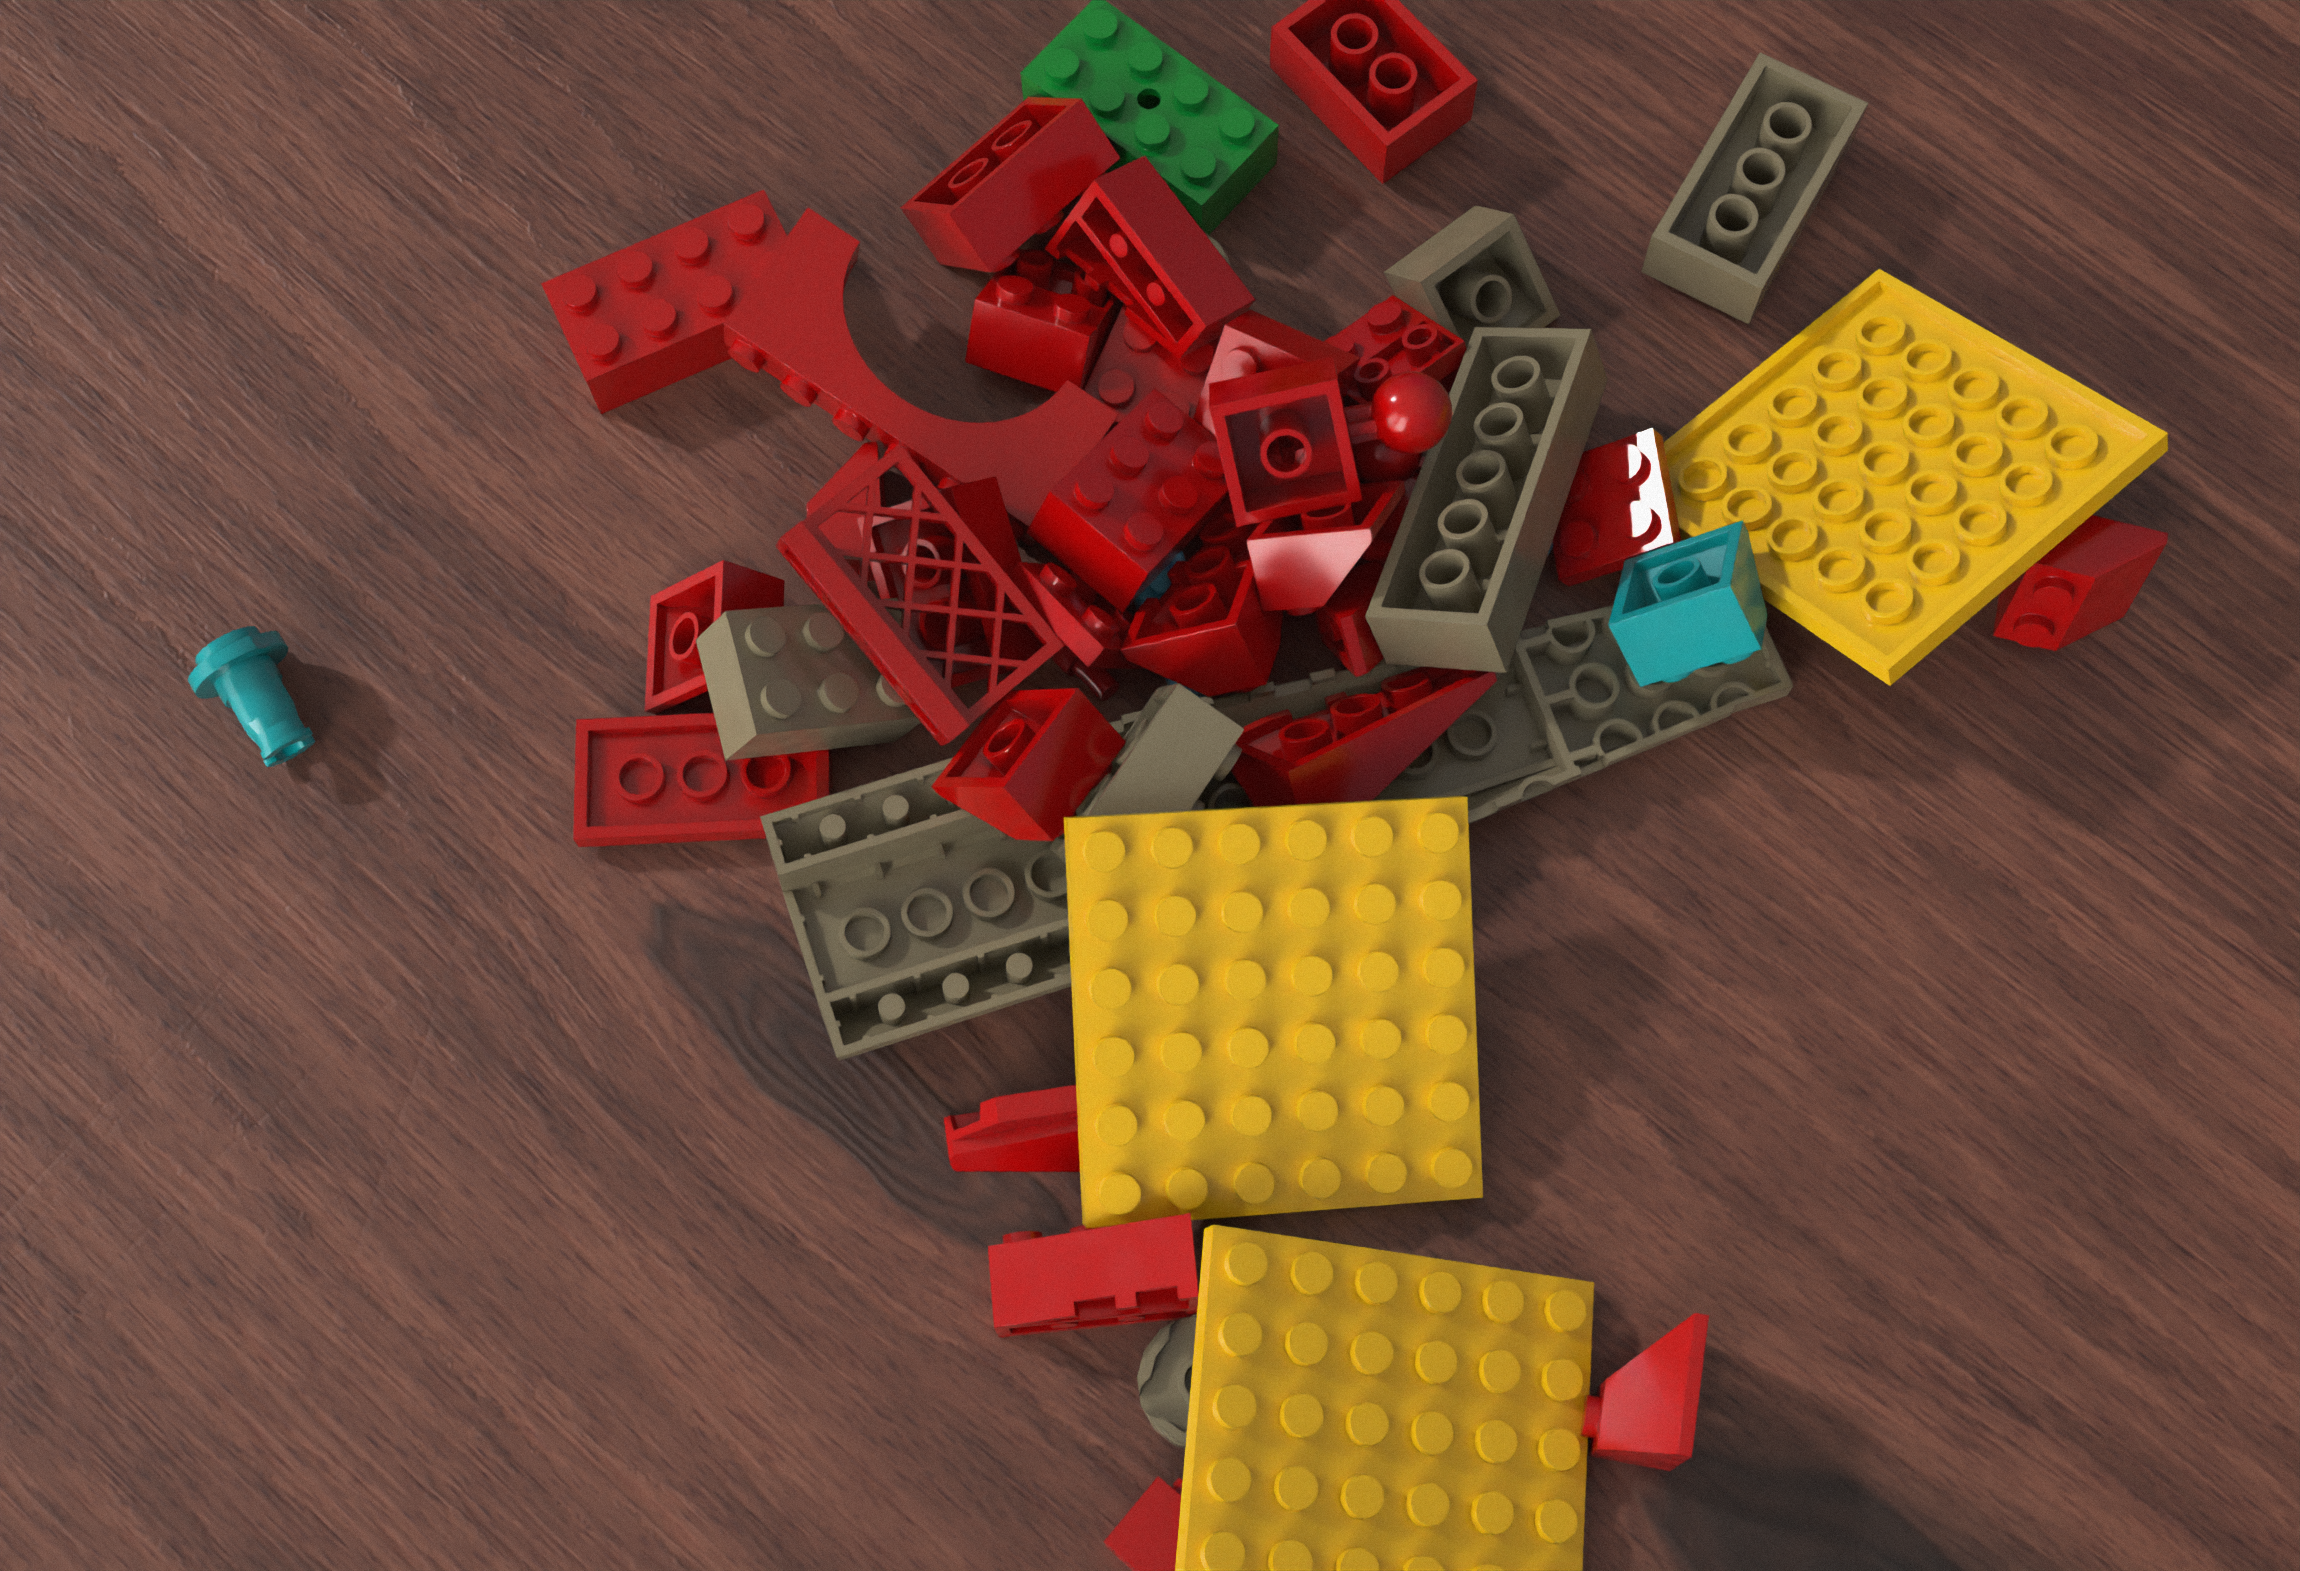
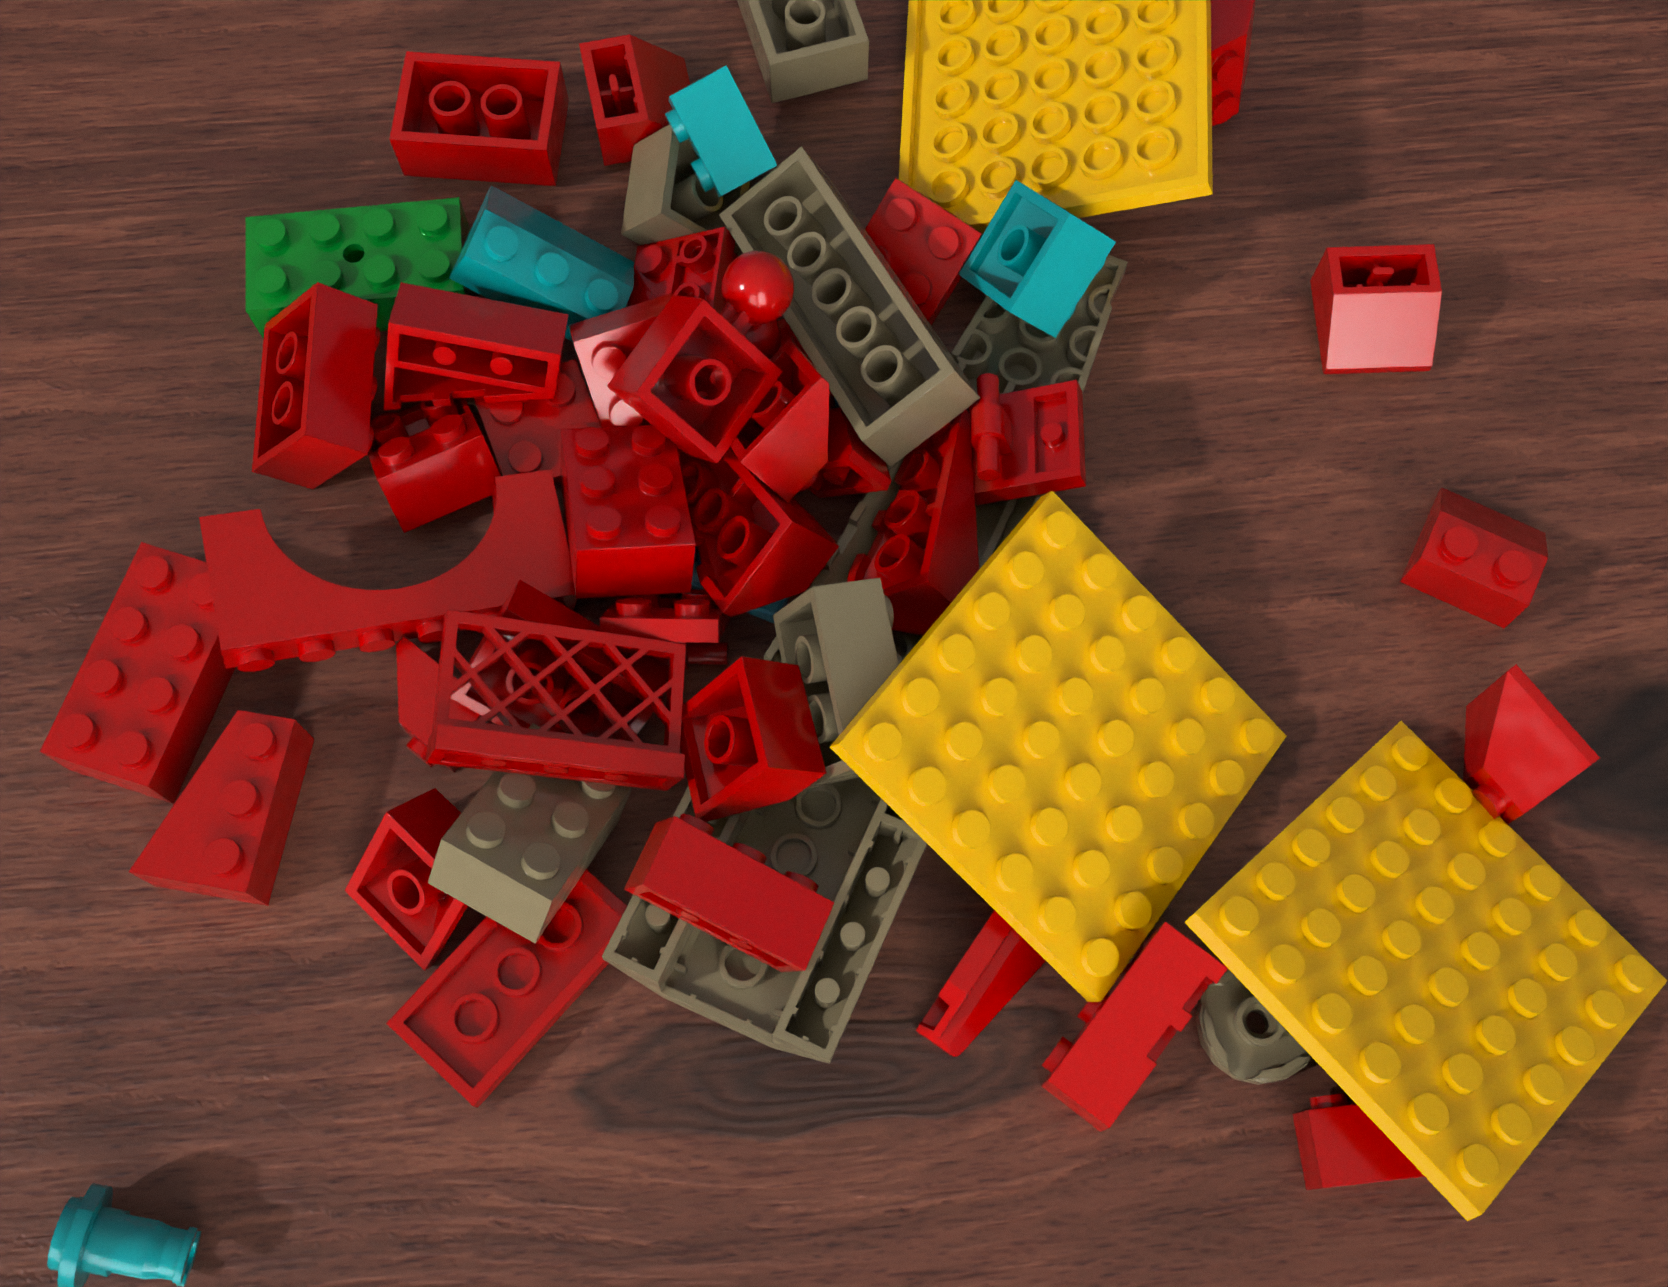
camera: 50 degrees left, 0 degrees up
(630, 460) = (233, 813): none -> red wedge
(897, 863) = (730, 893): none -> red brick
(1289, 240) = (540, 263): none -> teal slope
(1515, 744) = (1026, 440): none -> red plate
(1523, 162) = (629, 91): none -> red slope
(1544, 259) = (720, 132): none -> teal slope
(1821, 1219) = (1477, 559): none -> red slope
(1970, 932) = (1377, 308): none -> slope

